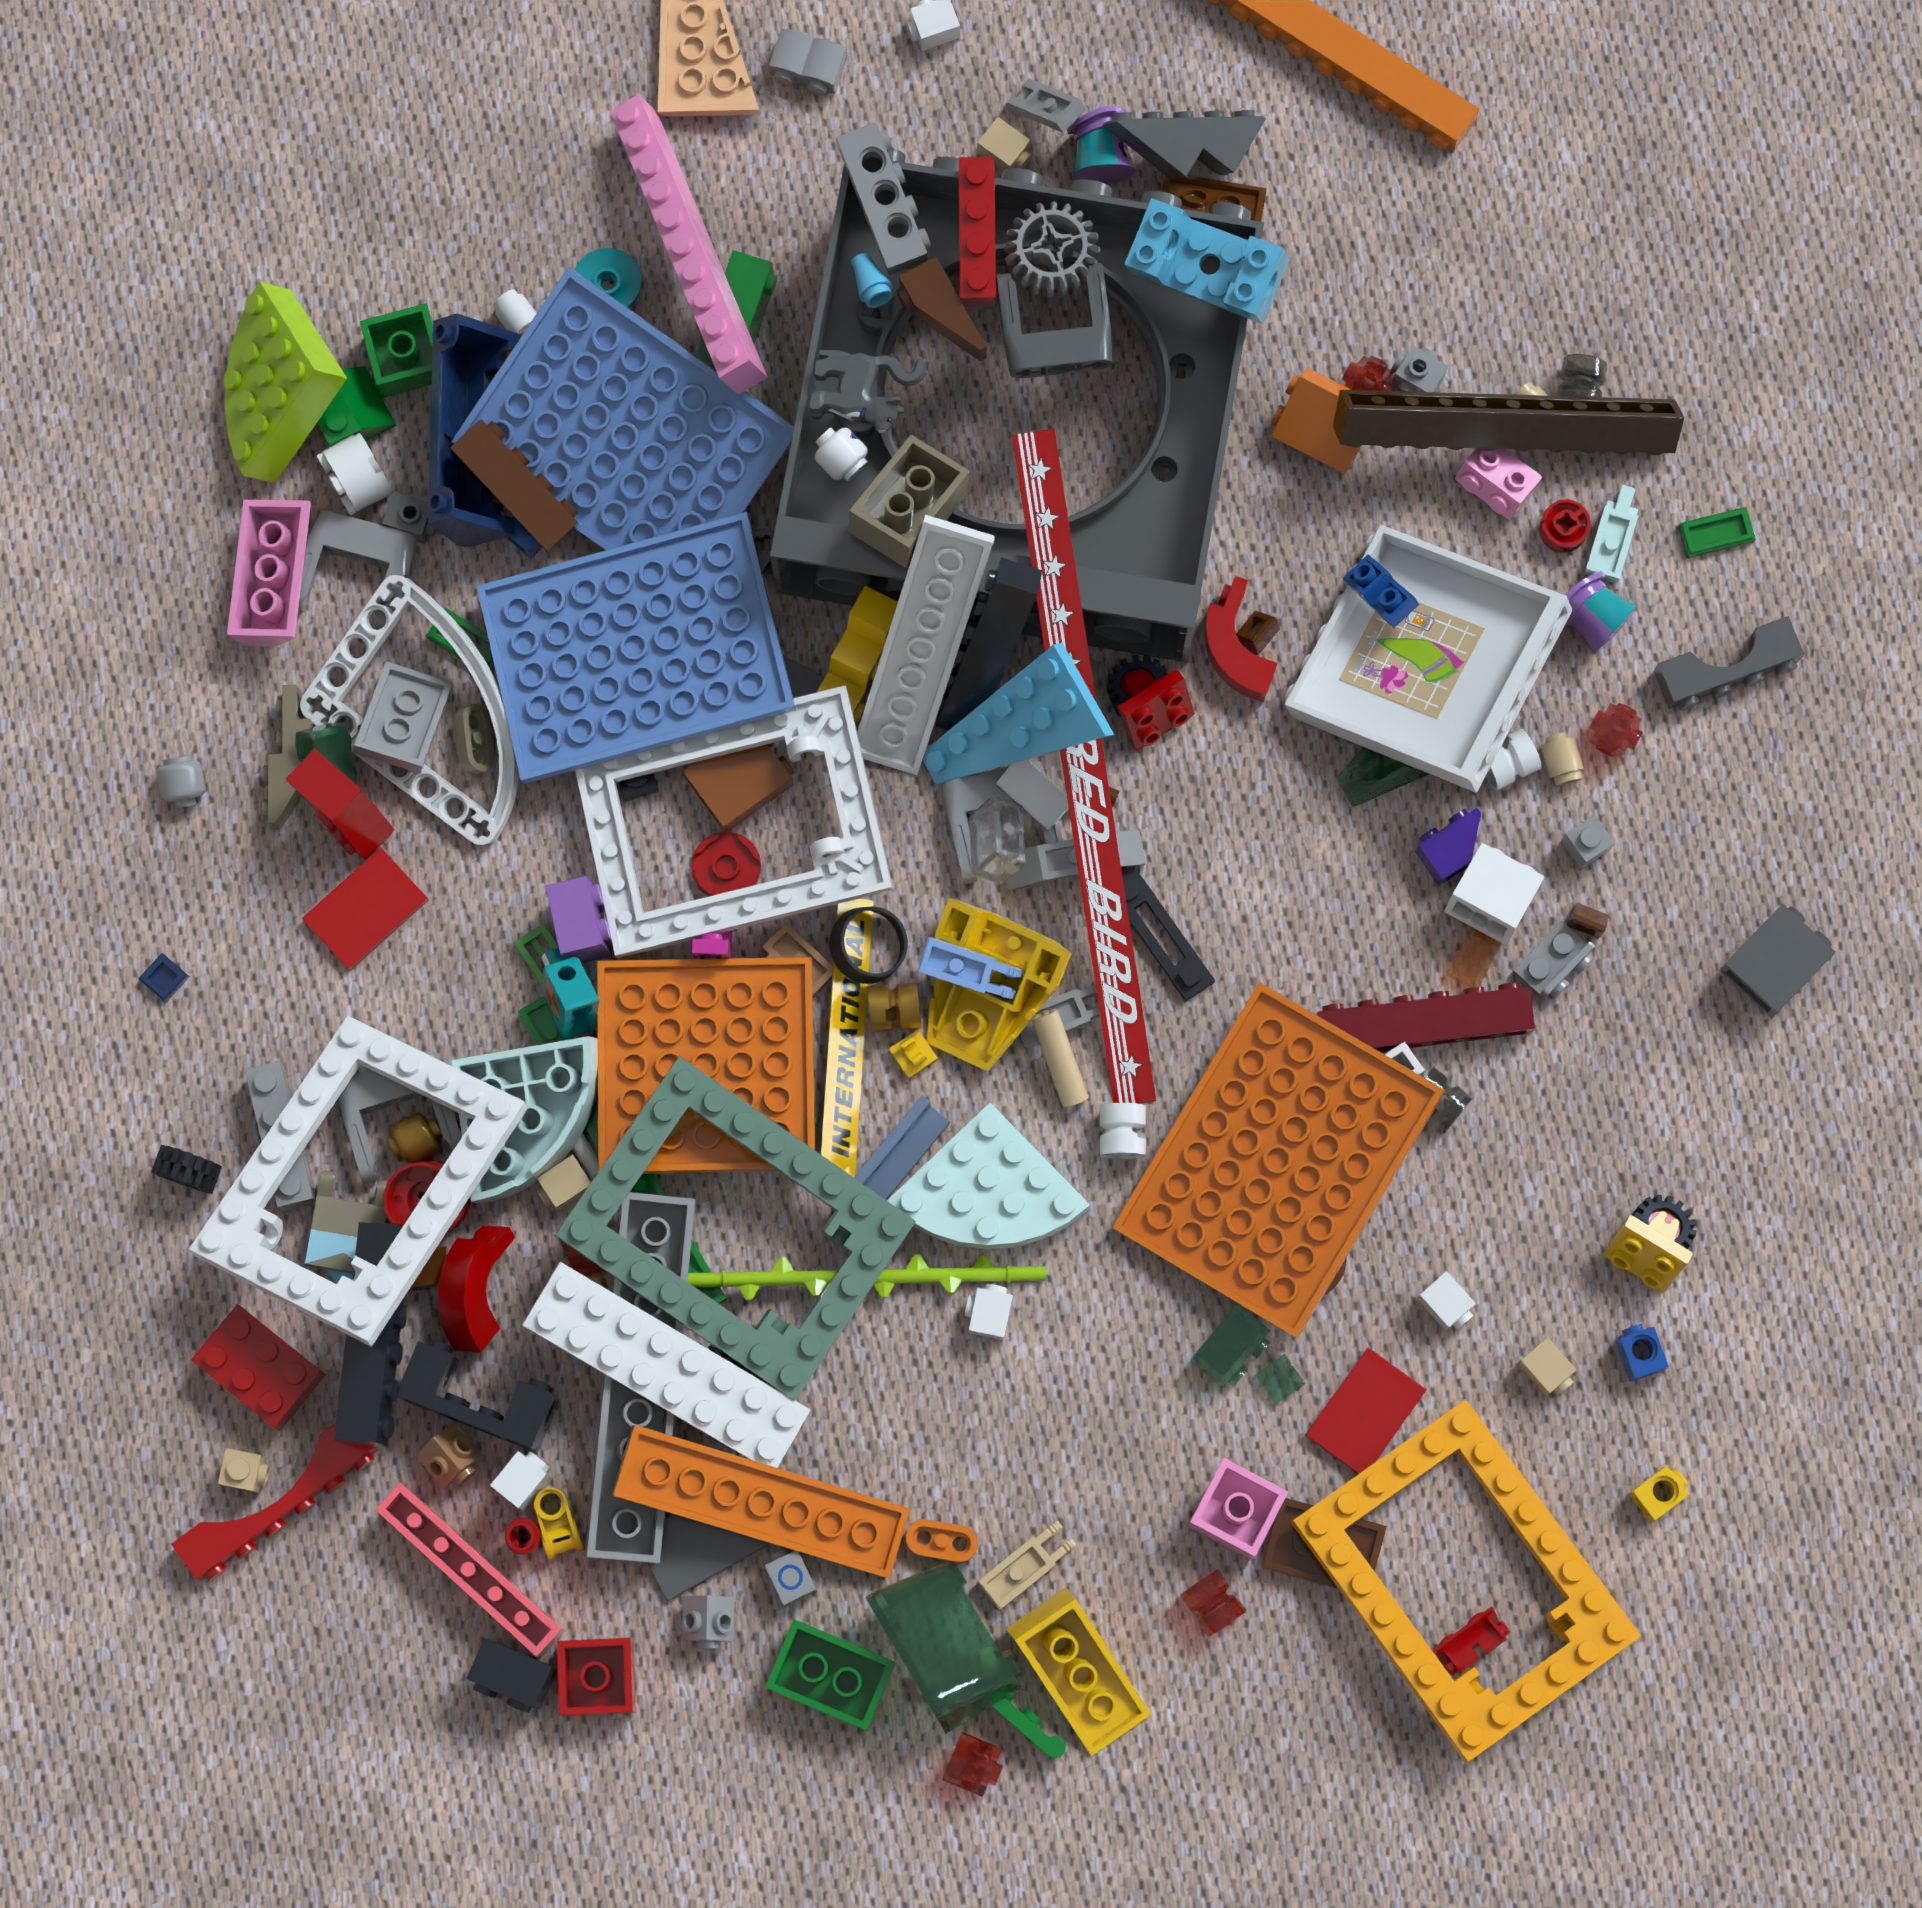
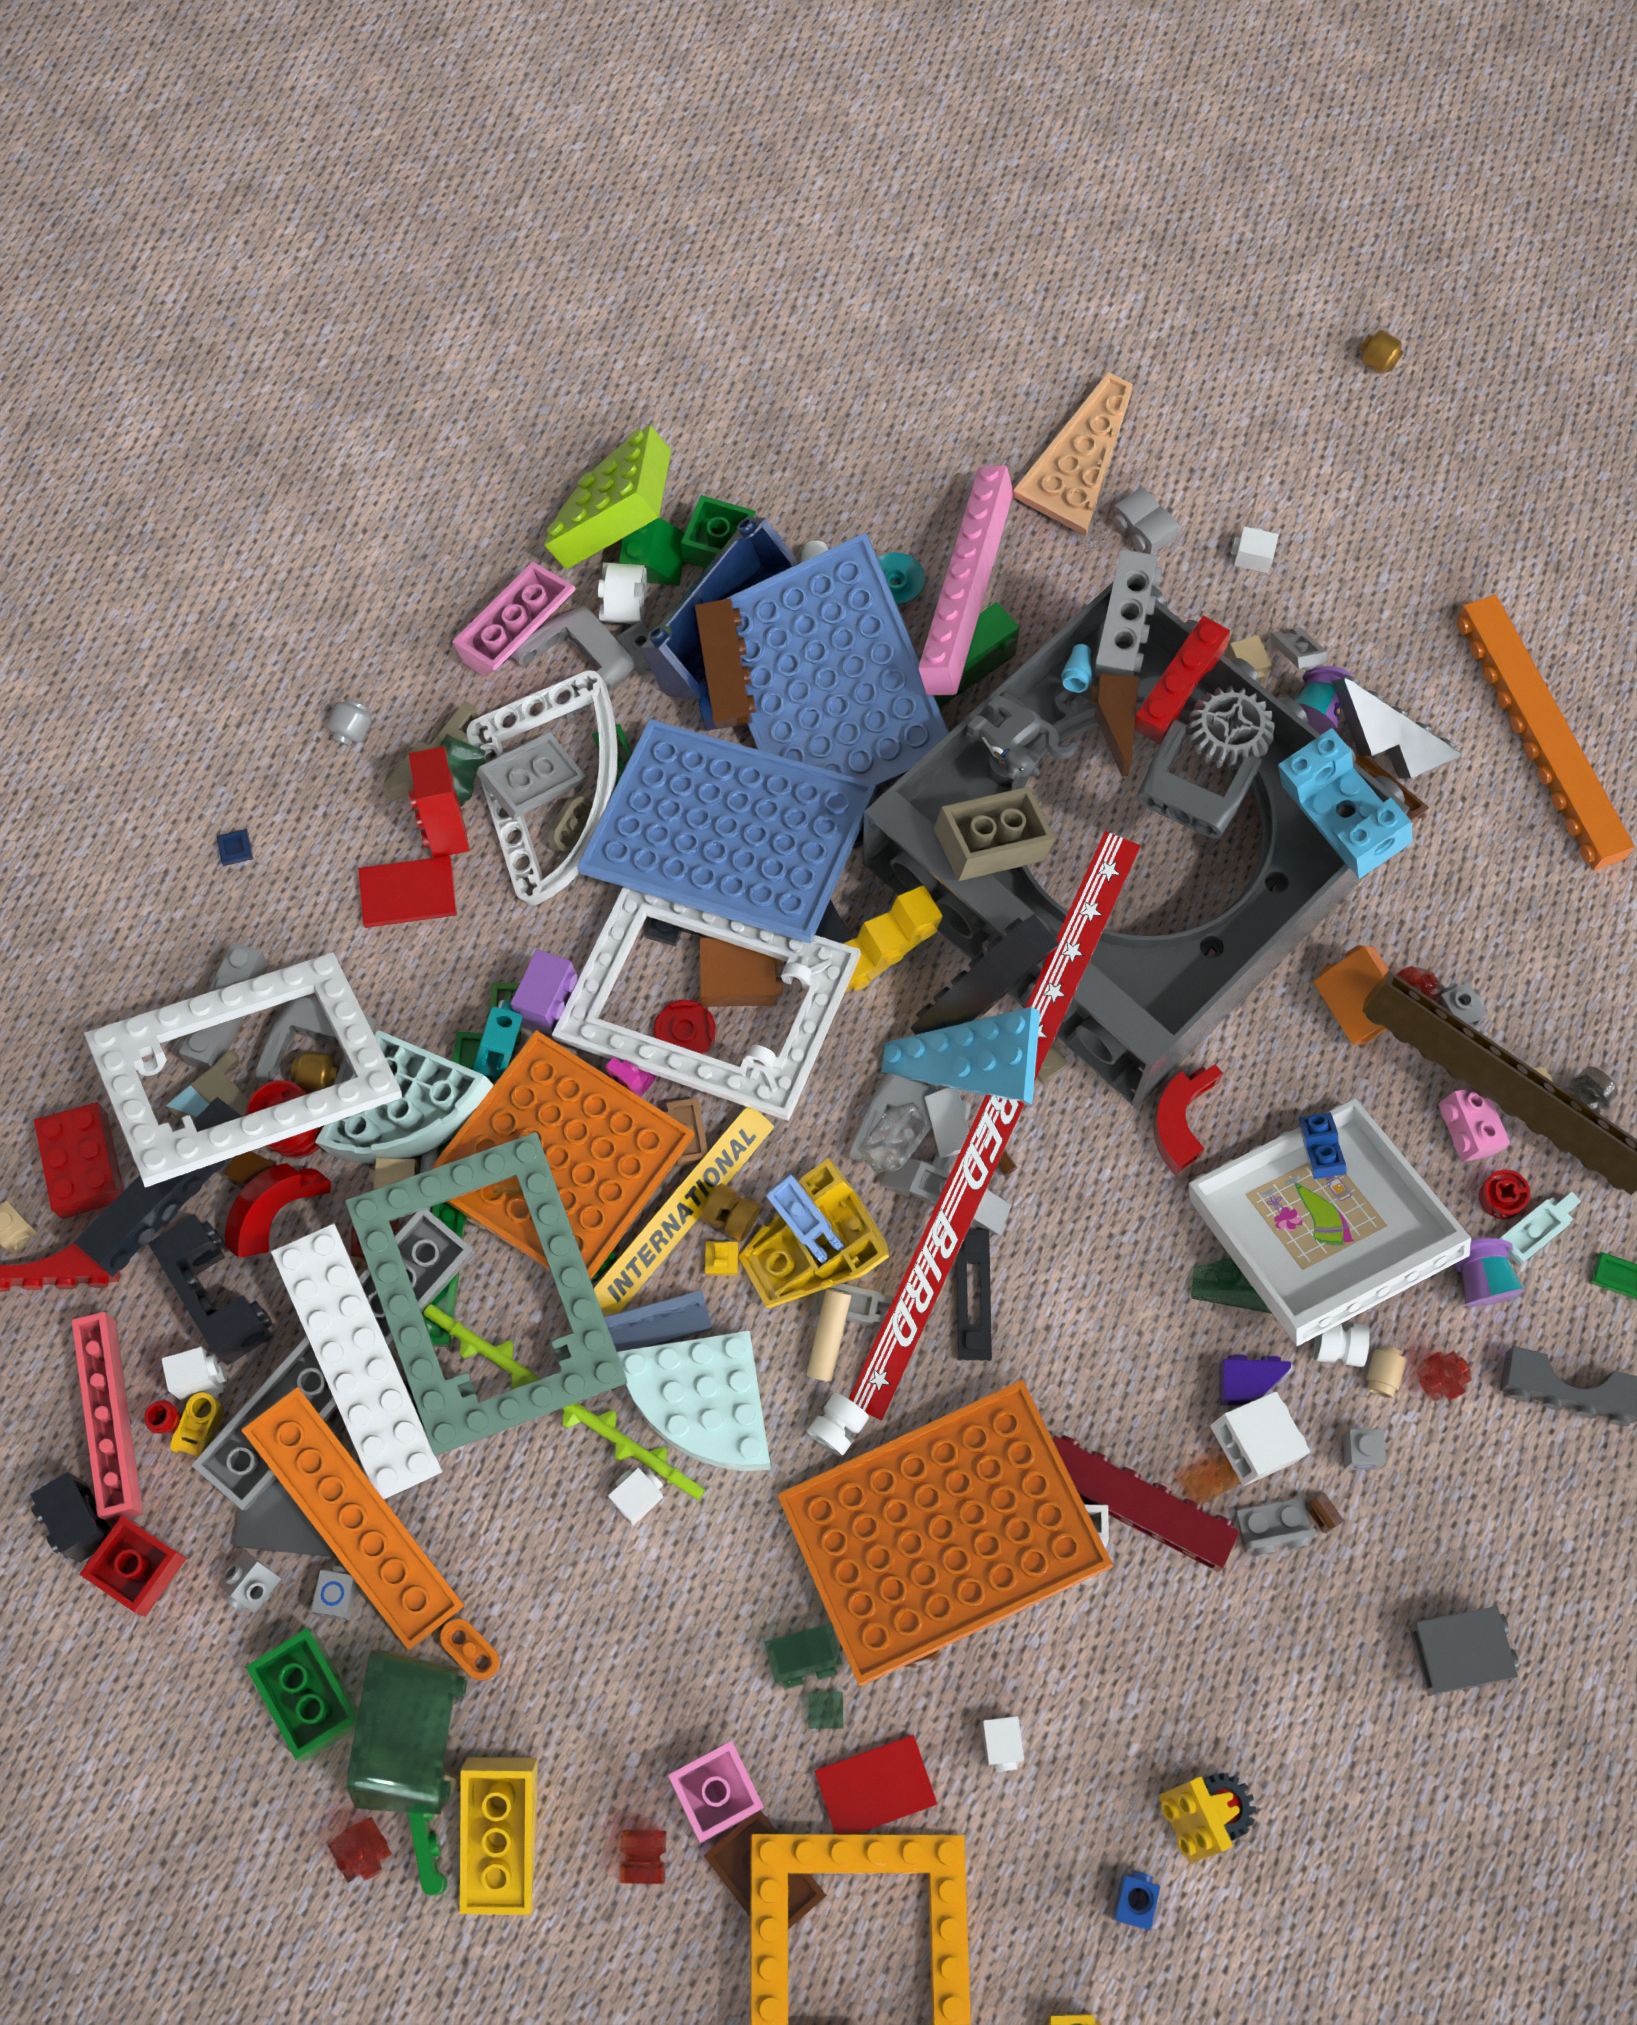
camera: 35 degrees right, 10 degrees down
(186, 1169) = (140, 984): black tyre -> none
(450, 1456) = (159, 1320): medium nougat brick -> none
(841, 453) = (968, 772): white head -> none
(841, 958) = (717, 1161): black tyre -> none
(922, 643) = (936, 949): white plate -> none
(1023, 1568) = (516, 1717): tan hinge -> none
(1148, 699) = (1085, 1113): red plate -> none
(1258, 631) = (1206, 1119): reddish brown slope -> none
(1459, 1100) = (1114, 1587): clear smoke wheel -> none
(1548, 1368) = (1049, 1858): tan brick -> none

